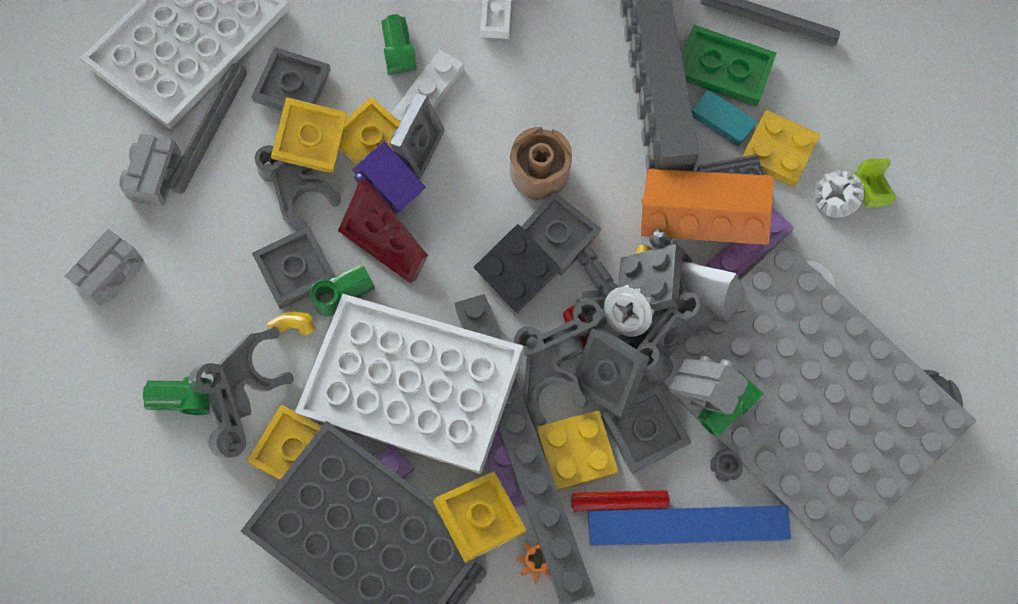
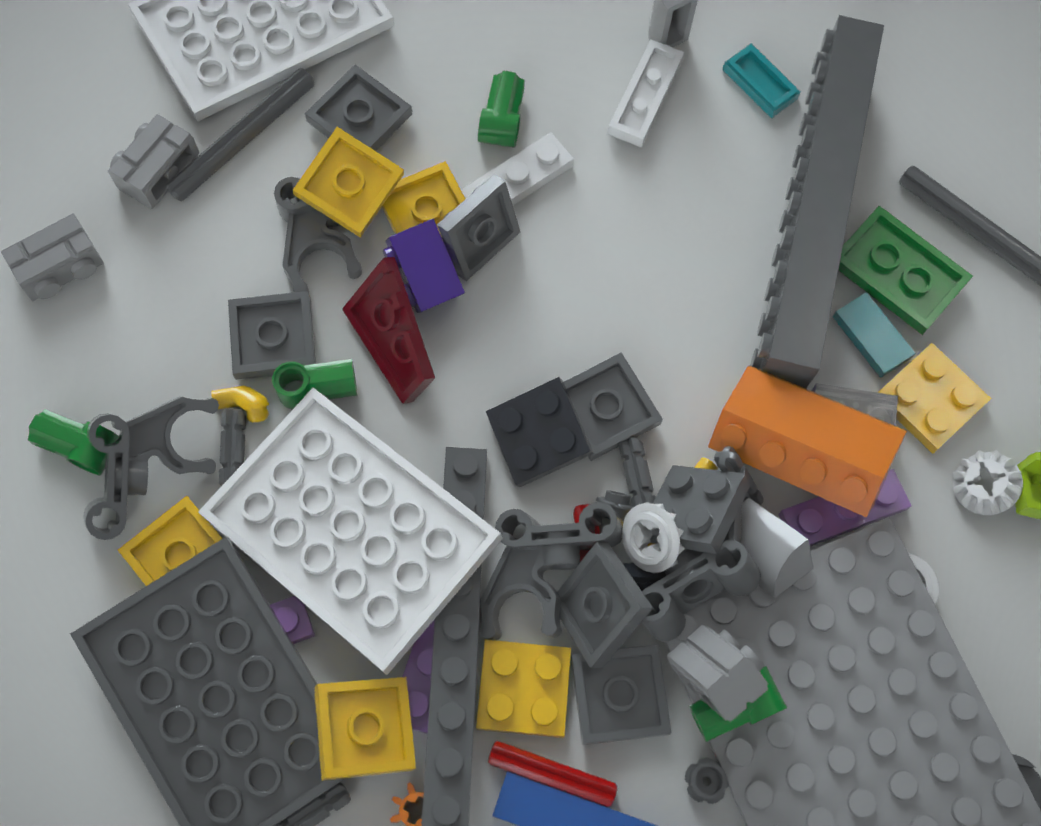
camera: 20 degrees right, 0 degrees up
(297, 356) = (232, 443): none -> dark grey axle
(540, 162) = (638, 308): medium nougat brick -> none

